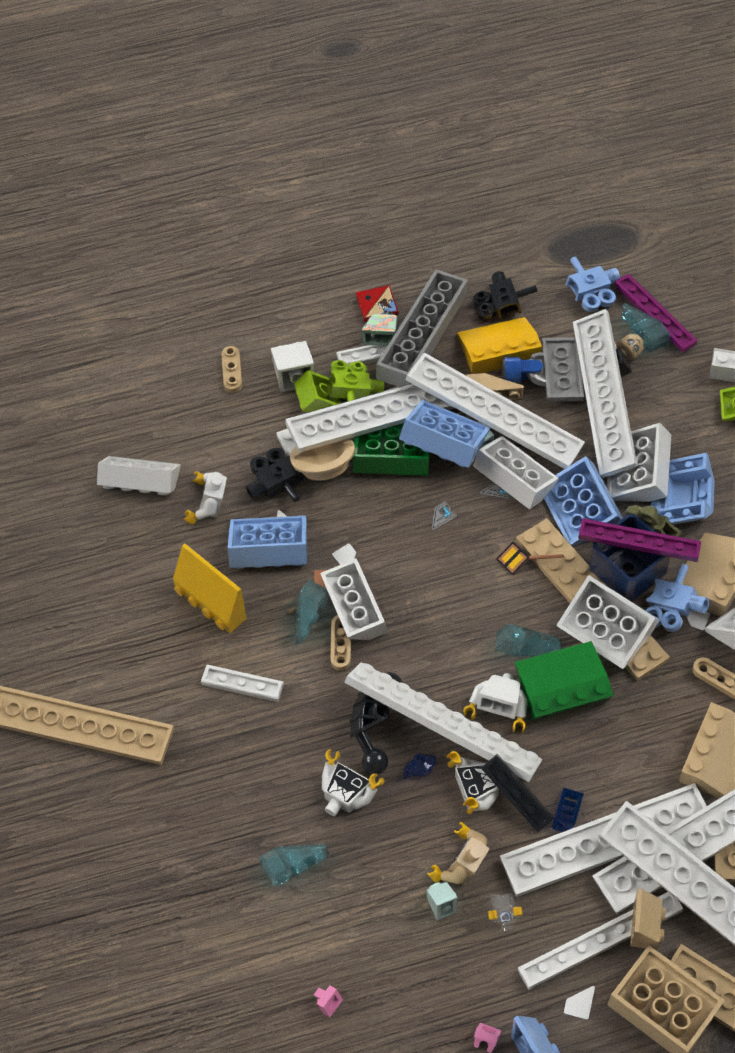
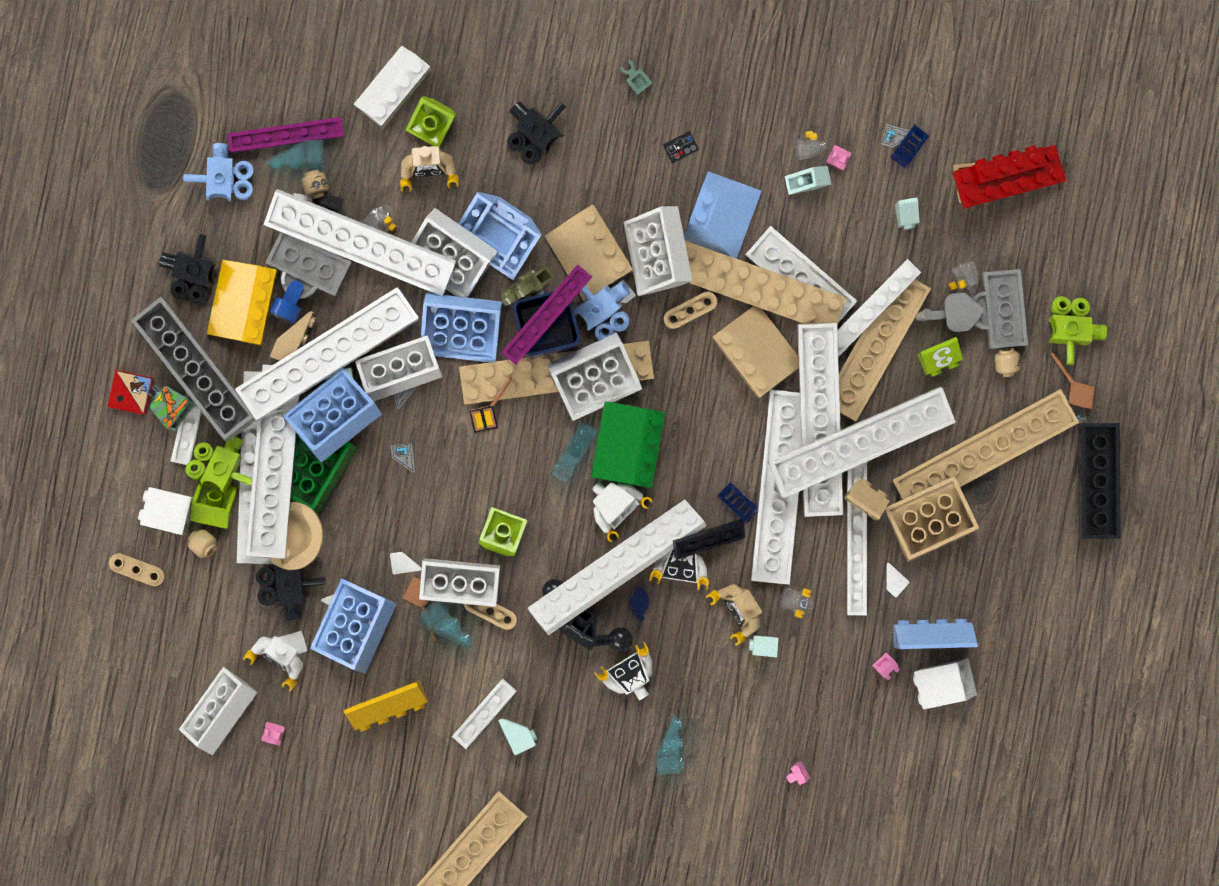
camera: 70 degrees left, 30 degrees up
(139, 524) = (273, 733): none -> bright pink tile
(229, 506) = (296, 641): none -> white sticker
(234, 718) = (518, 736): none -> light aqua slope
(279, 400) = (202, 543): none -> tan head
(418, 617) = (502, 532): none -> lime slope
(634, 404) = (380, 219): none -> clear piece
(704, 413) = (426, 163): none -> tan torso

